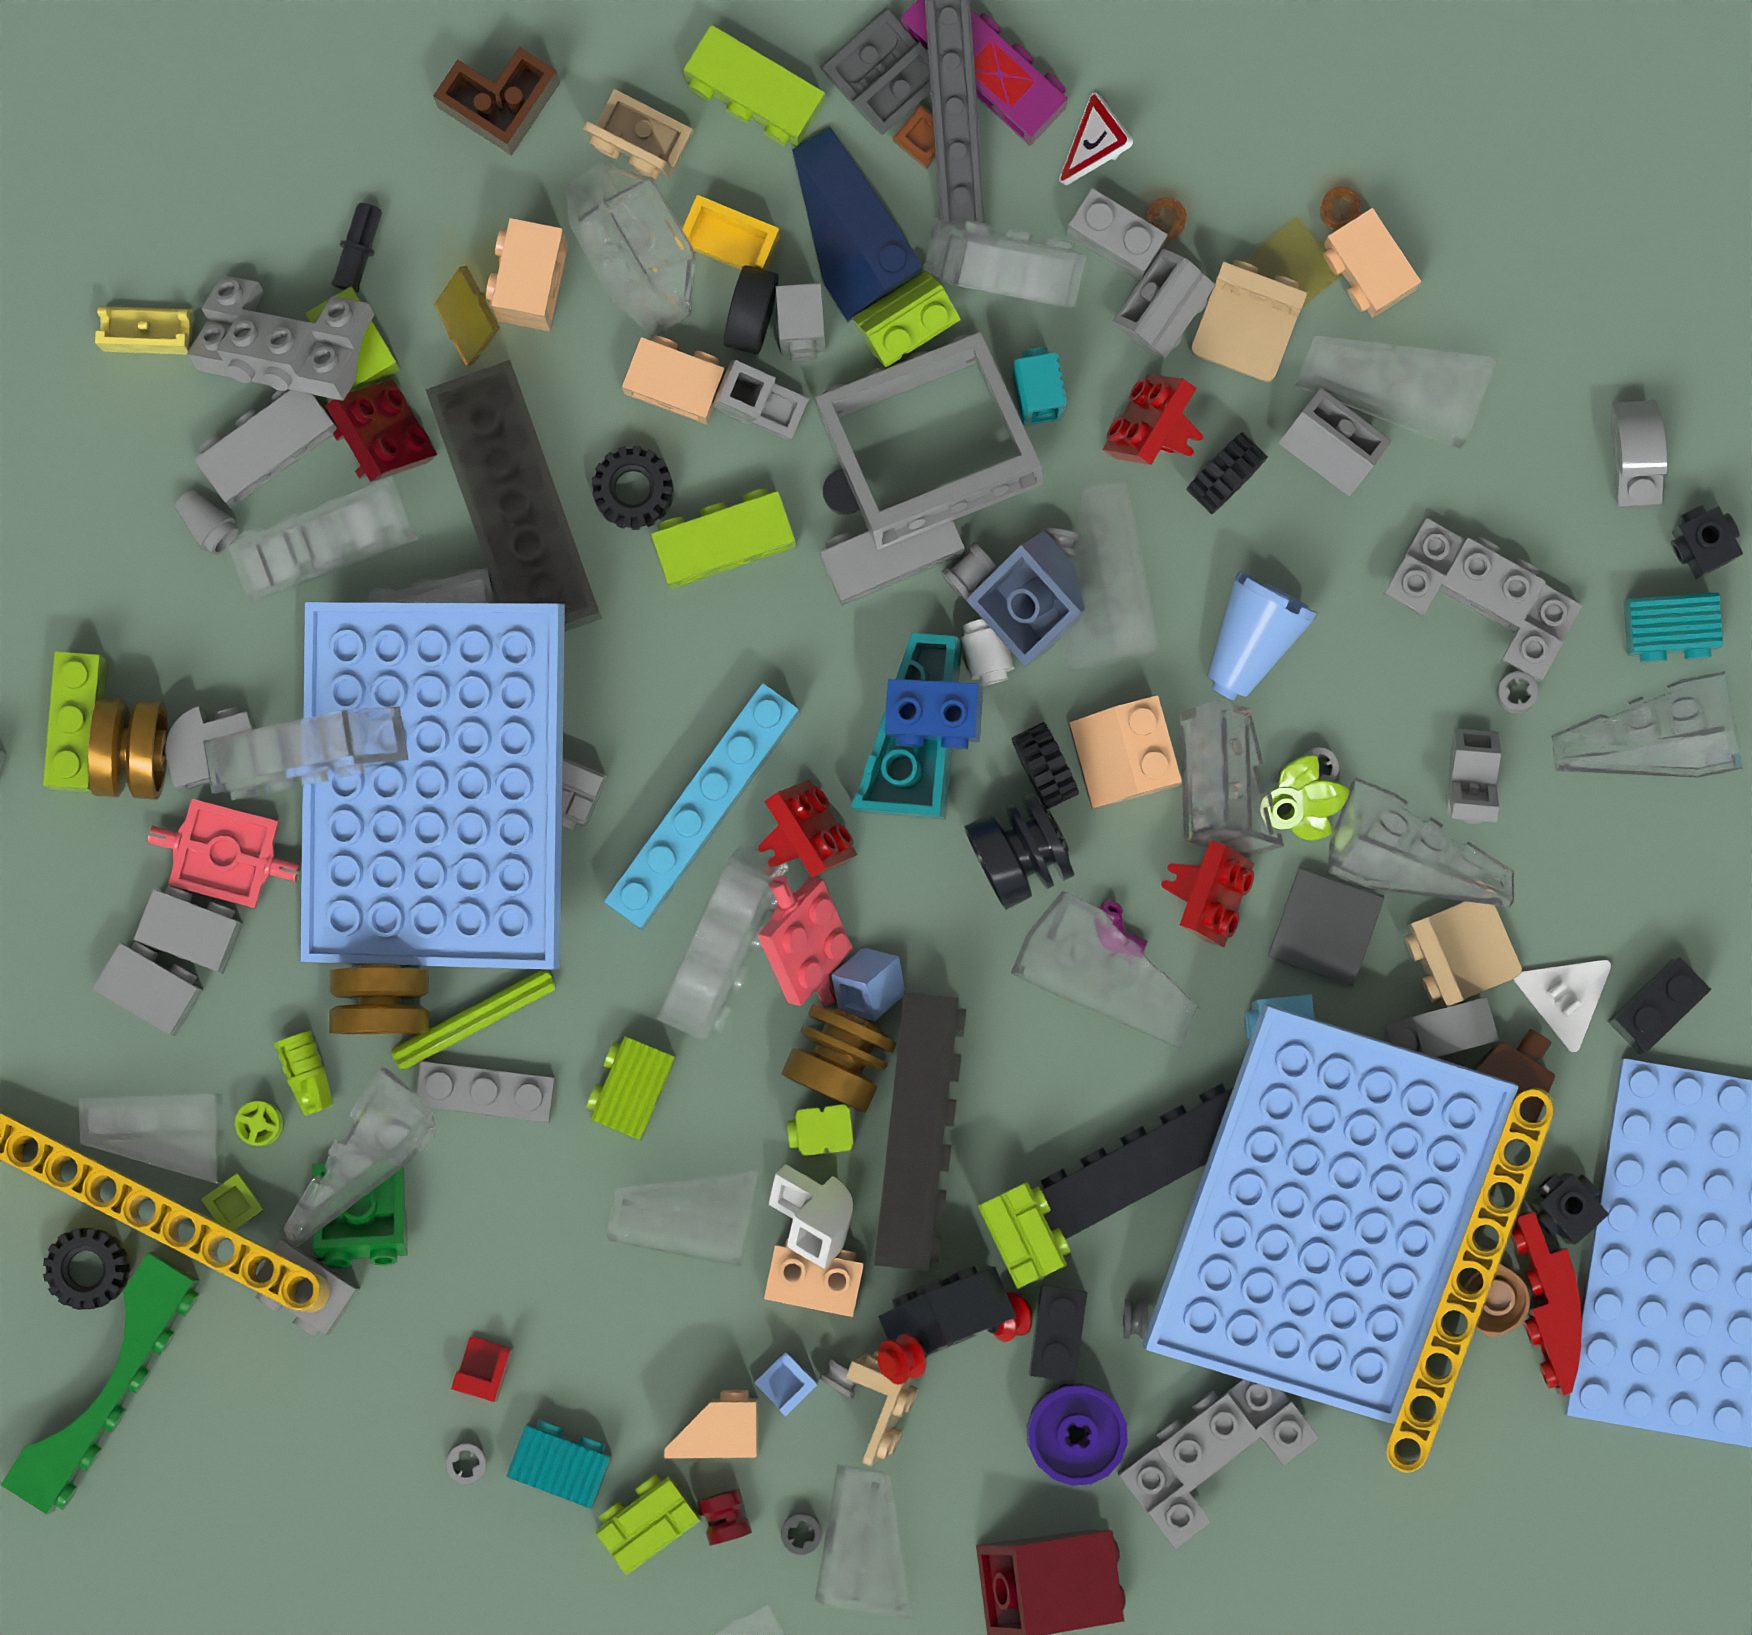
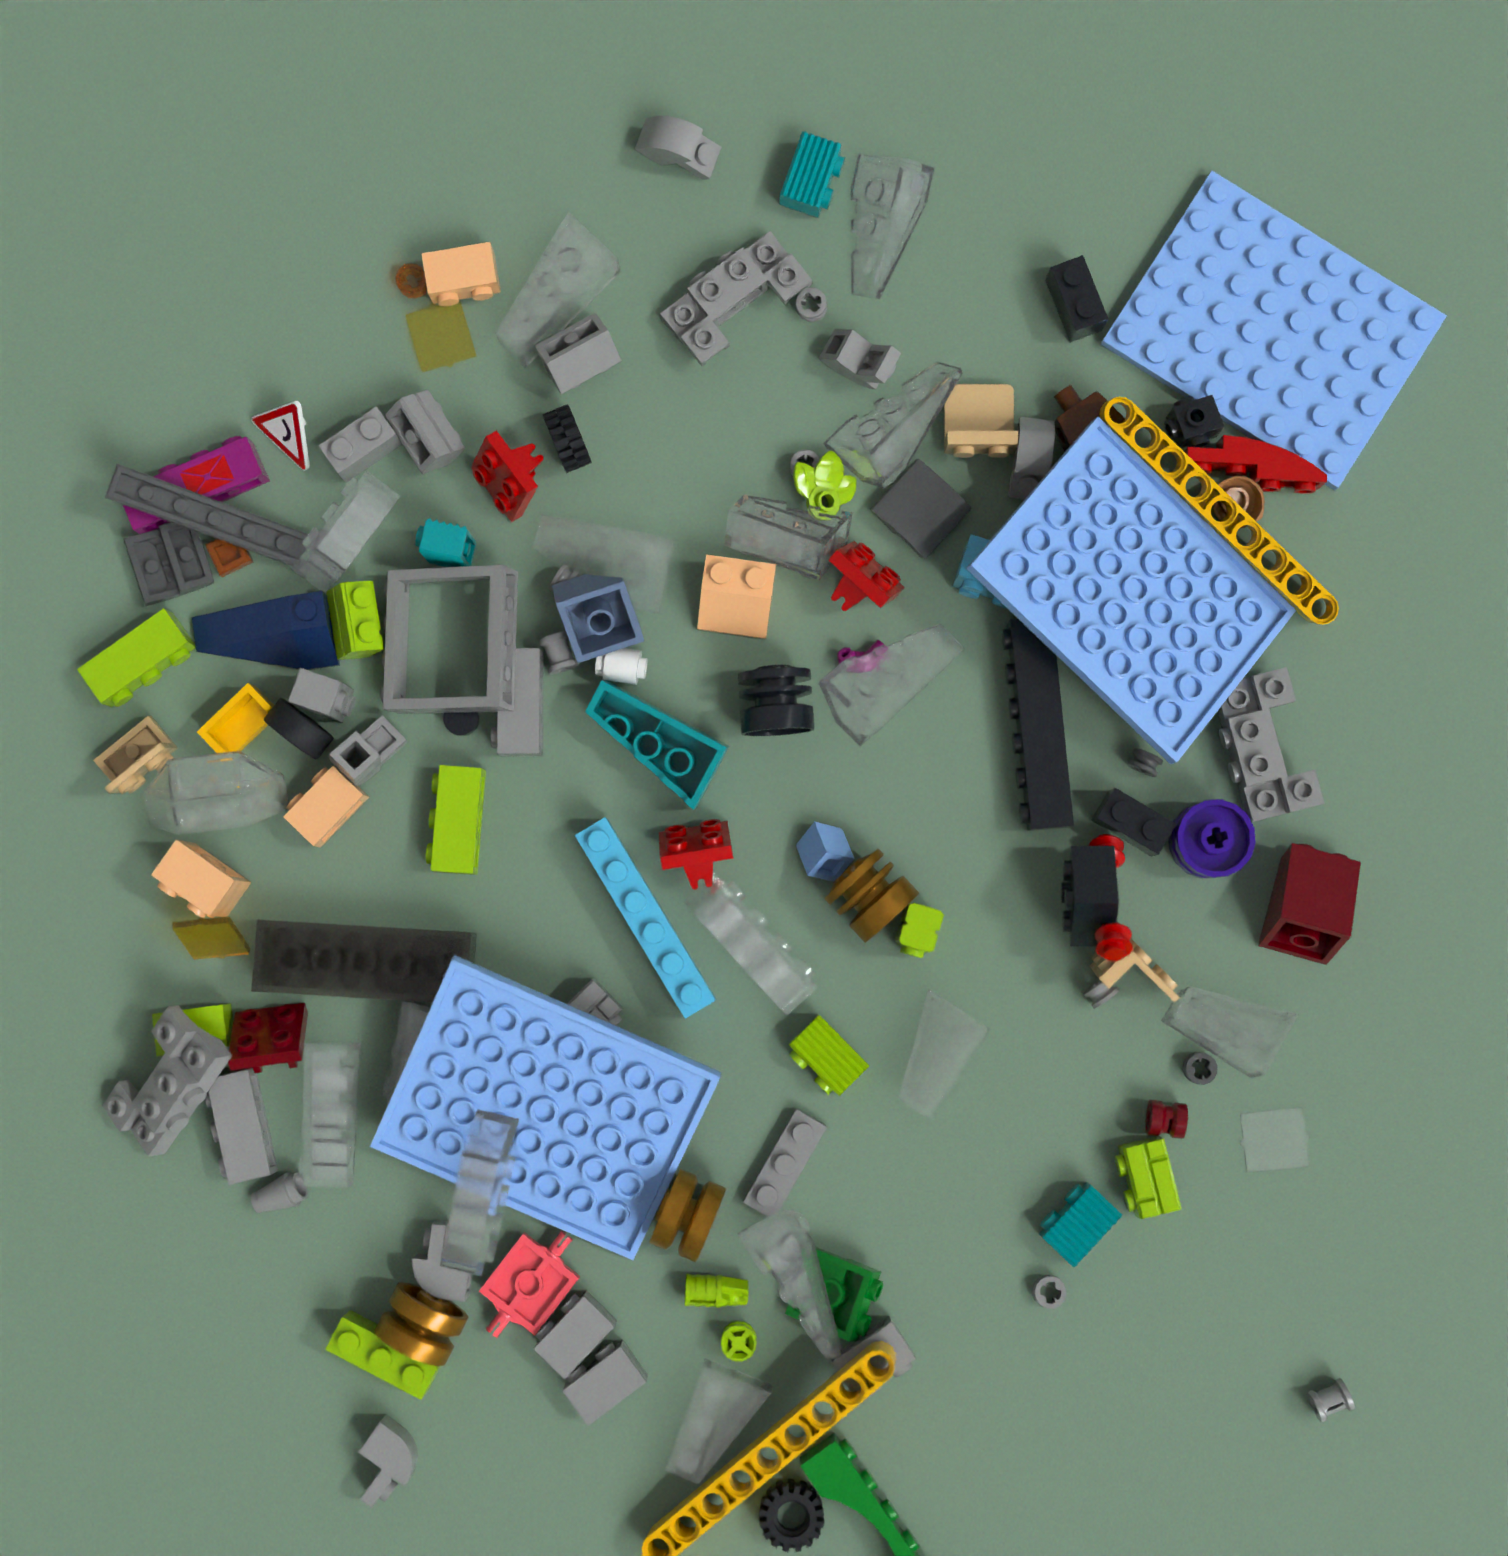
camera: 65 degrees left, 0 degrees up
(144, 330) = (117, 1180): light yellow hinge -> none
(233, 1203) = (789, 1385): lime plate -> none
(357, 247) = (126, 997): black axle -> none
(473, 1019) = (729, 1150): lime axle -> none
(482, 1369) = (987, 1251): red panel -> none
(501, 109) = (70, 848): reddish brown brick -> none
(626, 461) = (370, 864): black tyre -> none
(721, 1430) = (1104, 1097): light nougat slope -> none
(786, 1383) = (1088, 1032): light blue panel -> none
(804, 940) = (775, 884): coral plate -> none
(807, 1285) = (1021, 981): light nougat brick -> none
(818, 1214) = (977, 957): white brick -> none
(917, 1131) = (949, 862): clear smoke brick -> none
(933, 712) = (650, 718): blue brick -> none
(1023, 1234) = (1057, 815): lime brick -> none
(1045, 765) = (721, 657): black tyre -> none
(1176, 207) = (359, 396): clear orange bush -> none
(1248, 321) = (463, 377): tan bracket -> none
(1255, 635) = (692, 469): light blue cone -> none
(1566, 997) = (1041, 363): white piece -> none
(1705, 556) = (761, 125): black brick -> none

